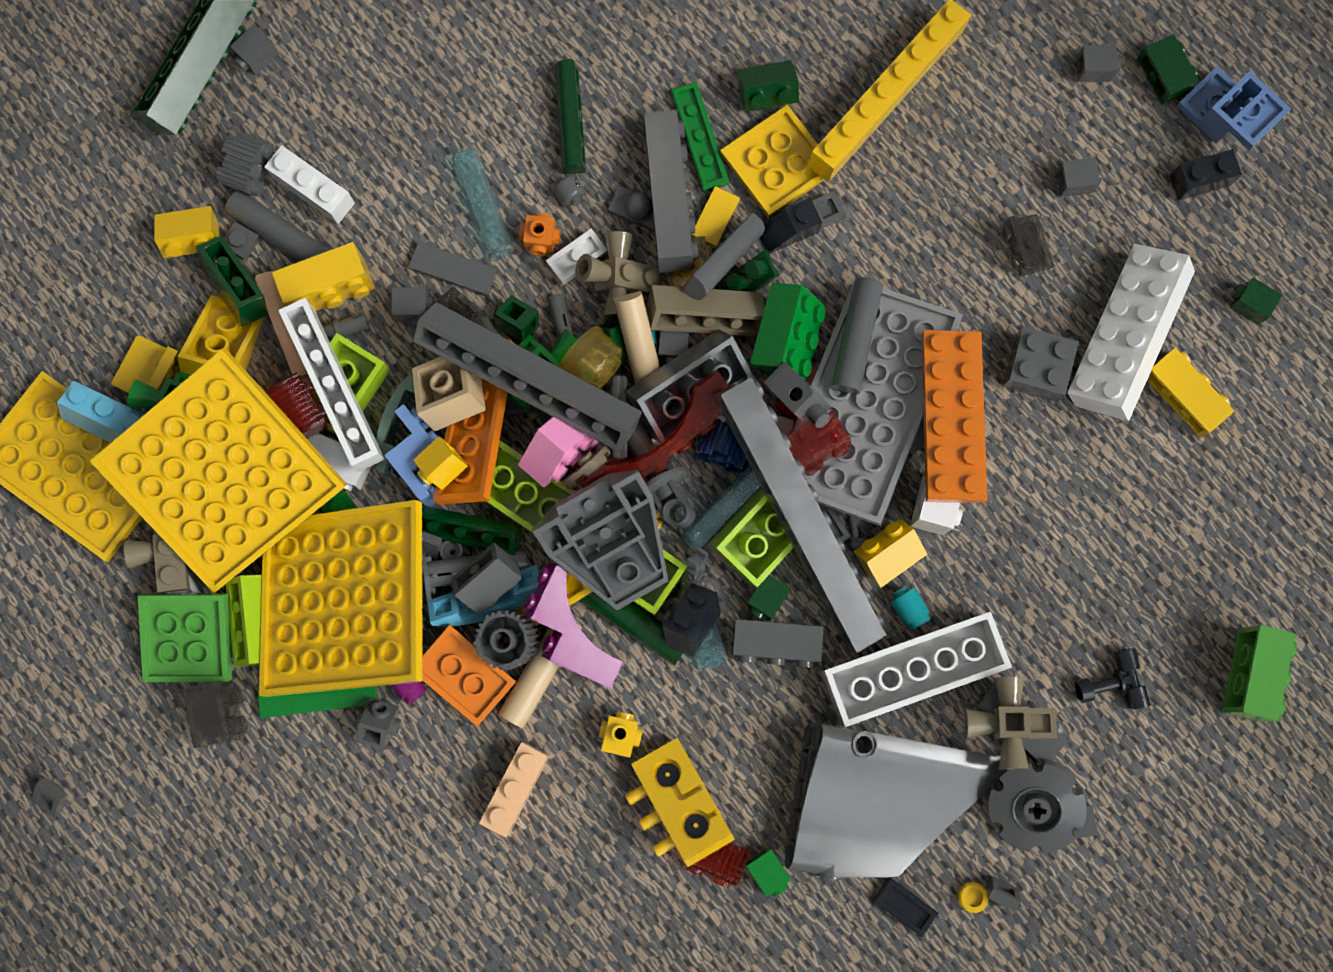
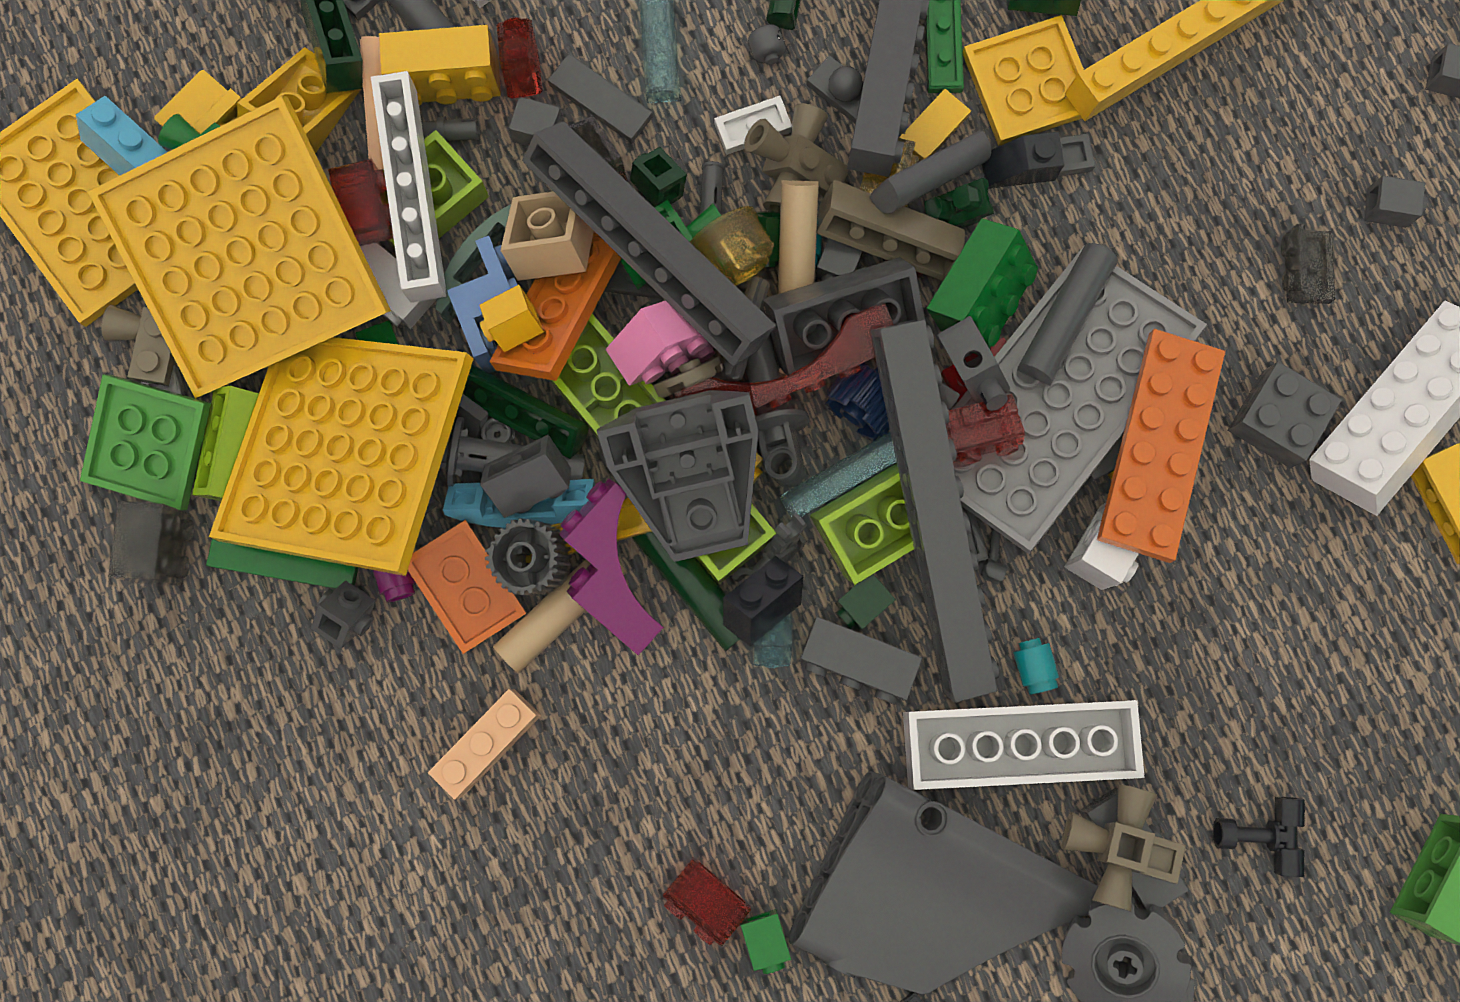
camera: 15 degrees right, 0 degrees up
(383, 257) = (519, 57): none -> clear red brick
(540, 243) = (716, 85): orange brick -> none
(620, 746) = (620, 723): yellow brick -> none
(680, 804) = (681, 822): yellow piece -> none
(890, 552) = (1031, 591): yellow brick -> none

